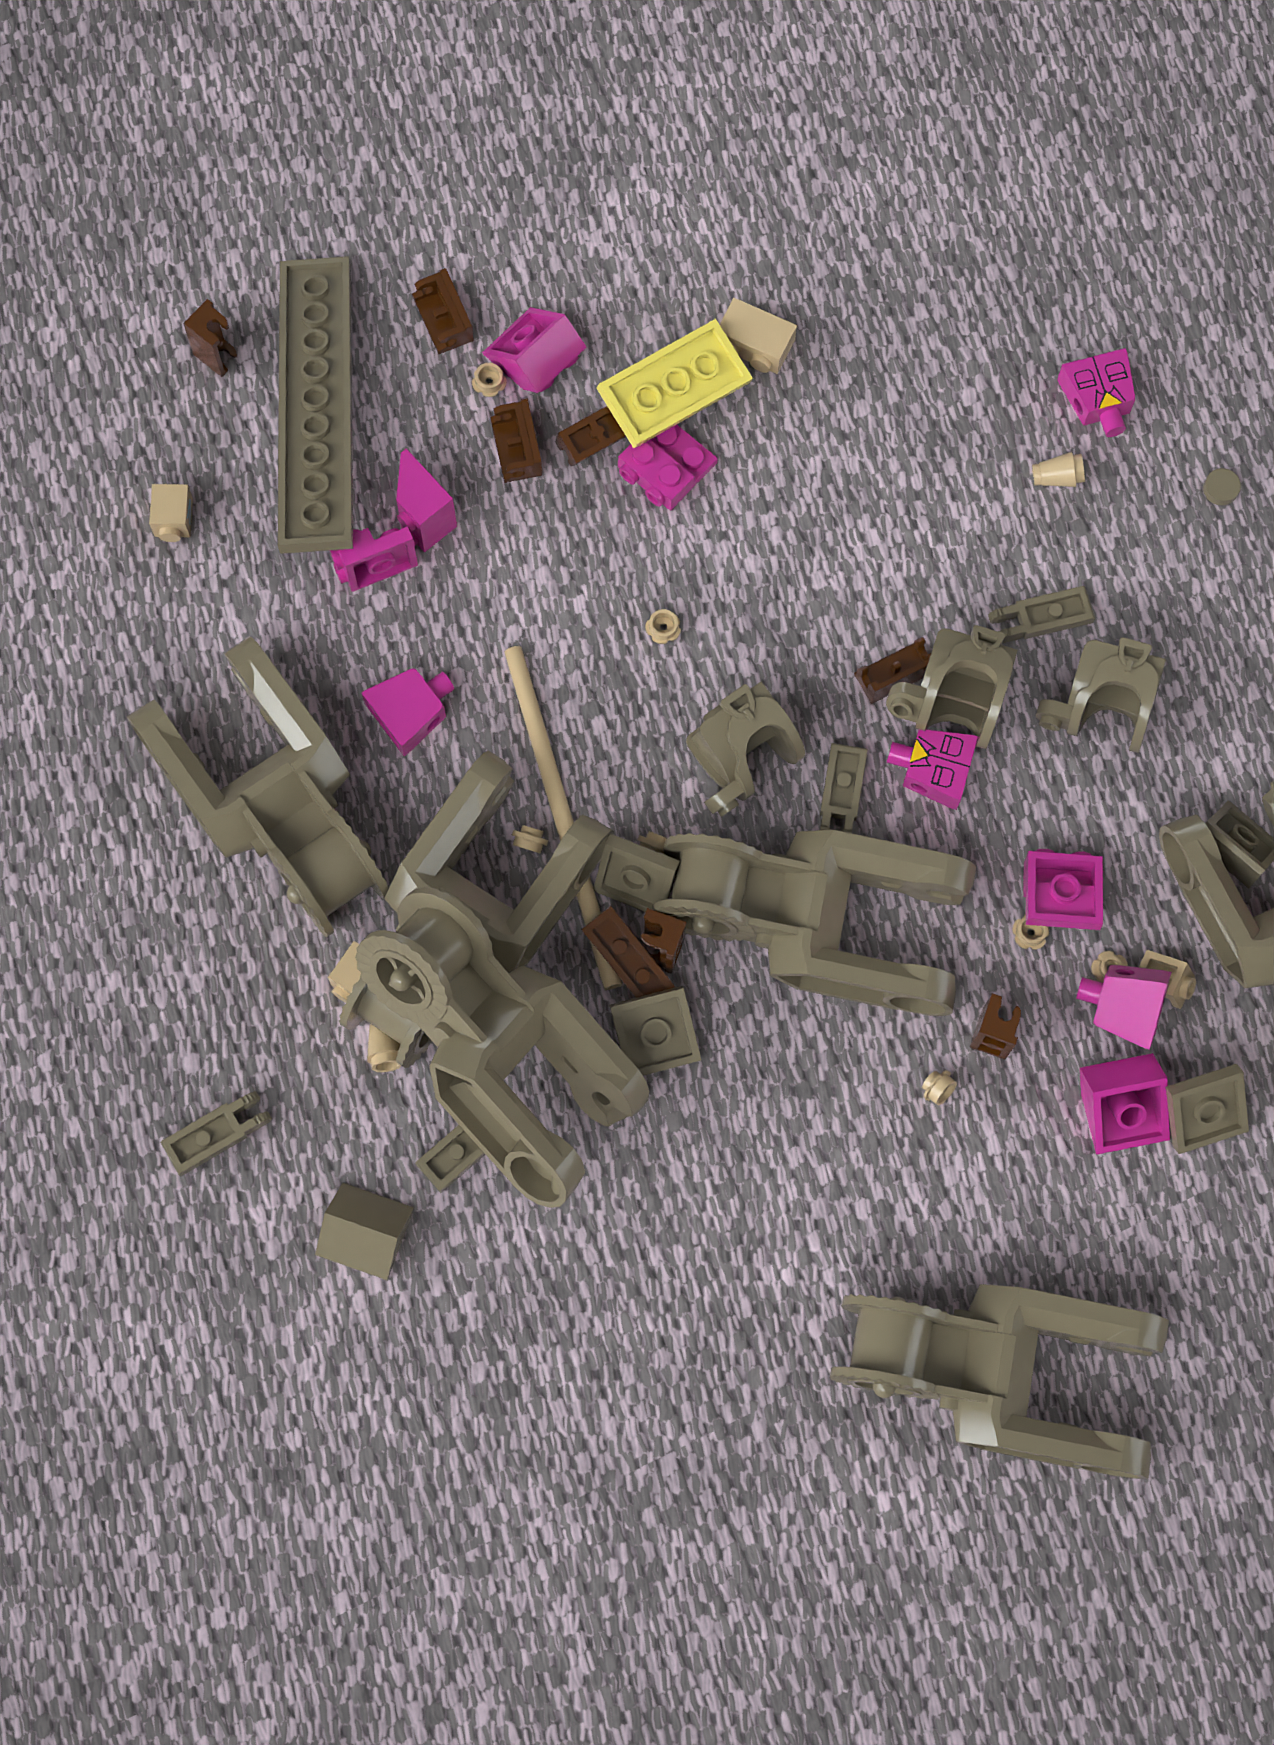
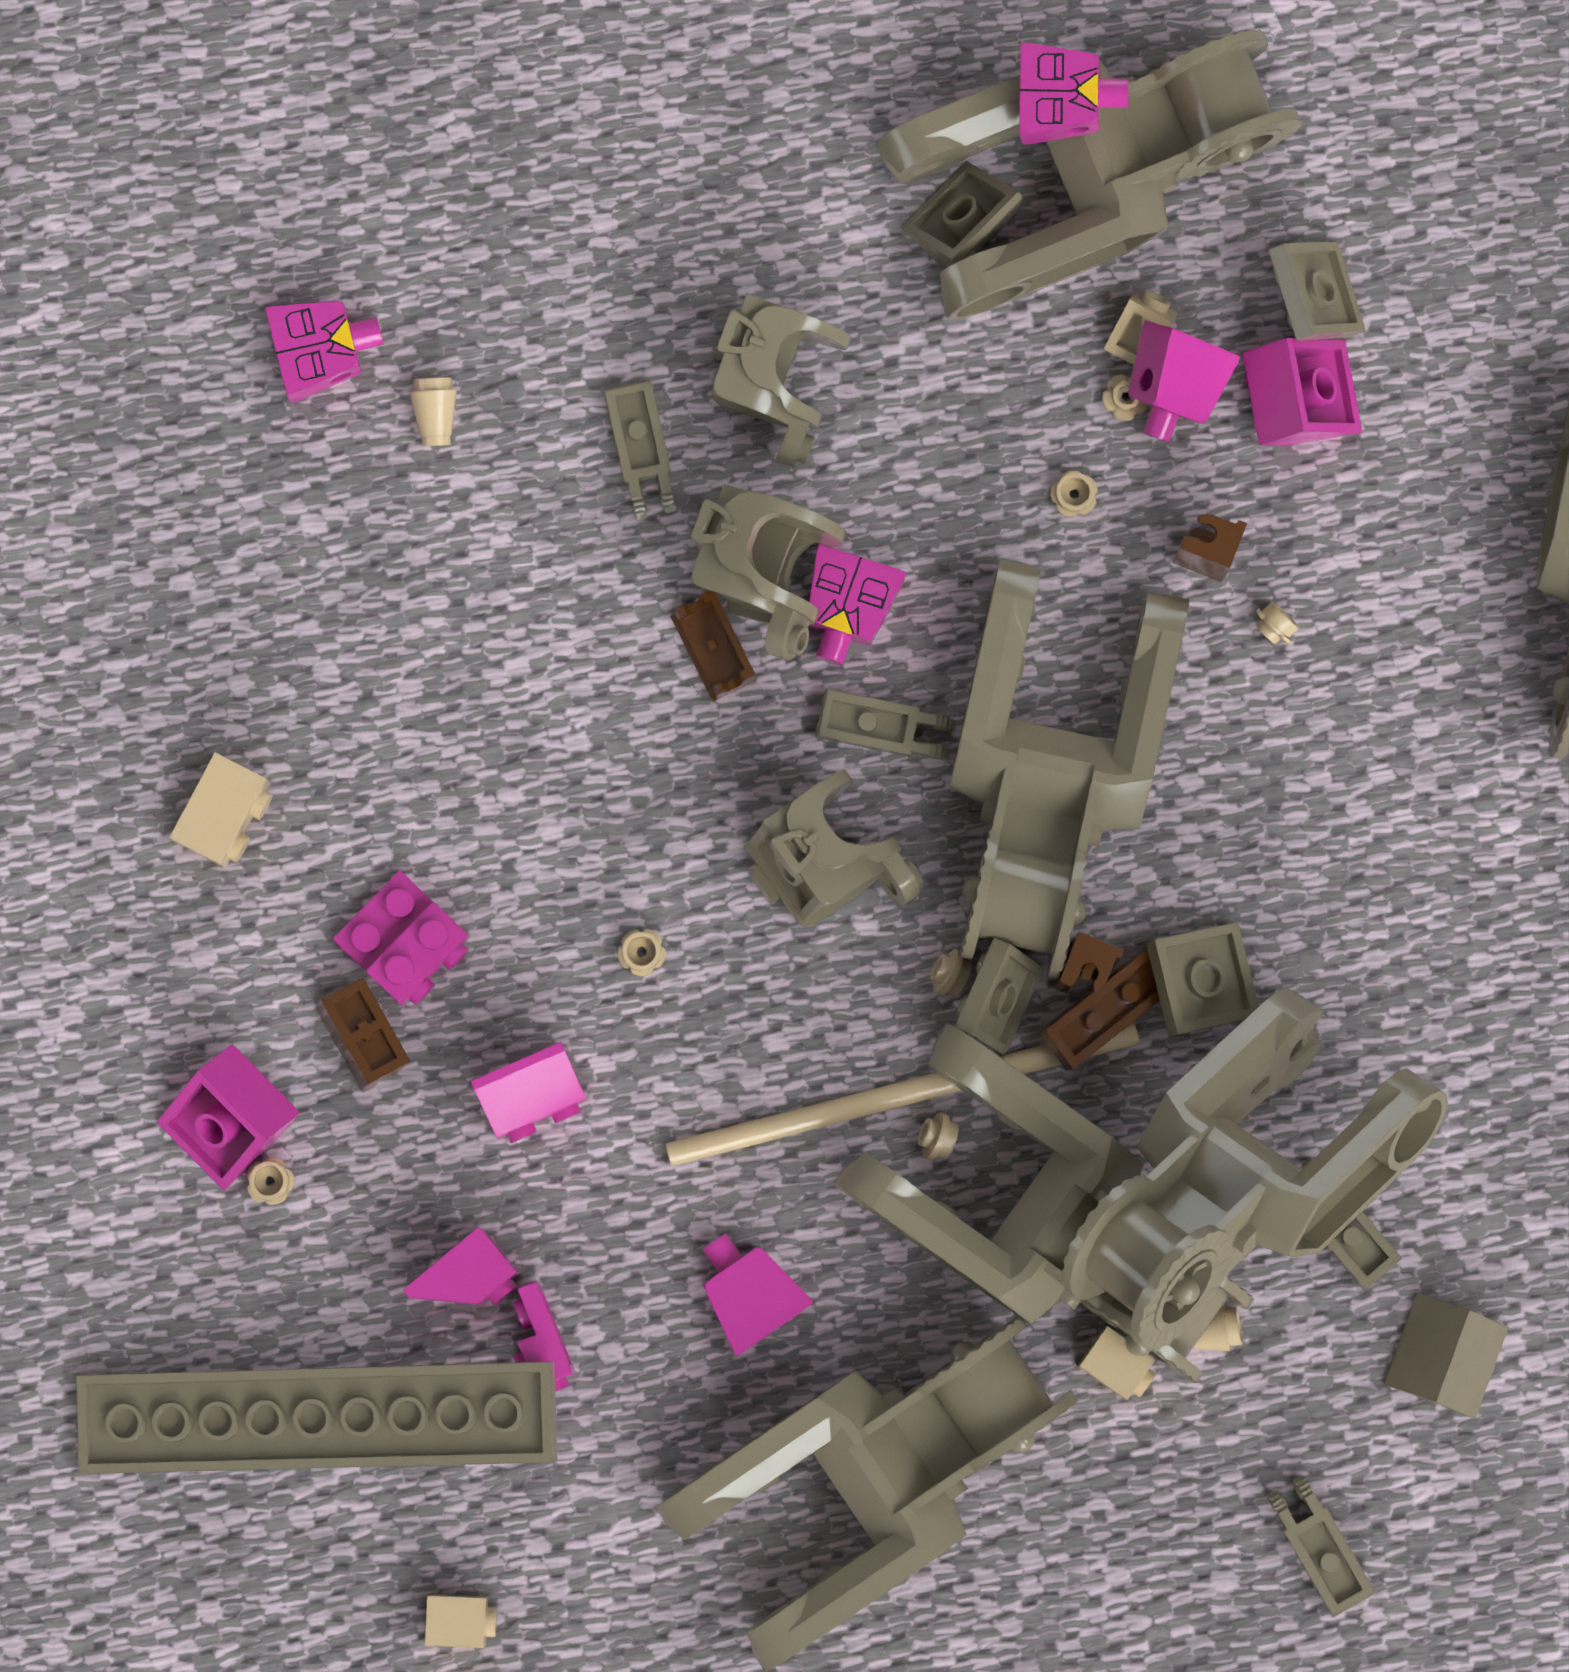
camera: 90 degrees left, 10 degrees up
(207, 337) = (197, 1569): reddish brown hinge -> none
(442, 312) = (166, 1244): reddish brown hinge -> none
(516, 441) = (367, 1144): reddish brown hinge -> none
(556, 545) = (530, 1092): none -> slope
(674, 383) = (302, 922): light yellow plate -> none
(1063, 889) = (1027, 448): dark pink plate -> none
(1222, 486) = (460, 195): dark tan tile -> none

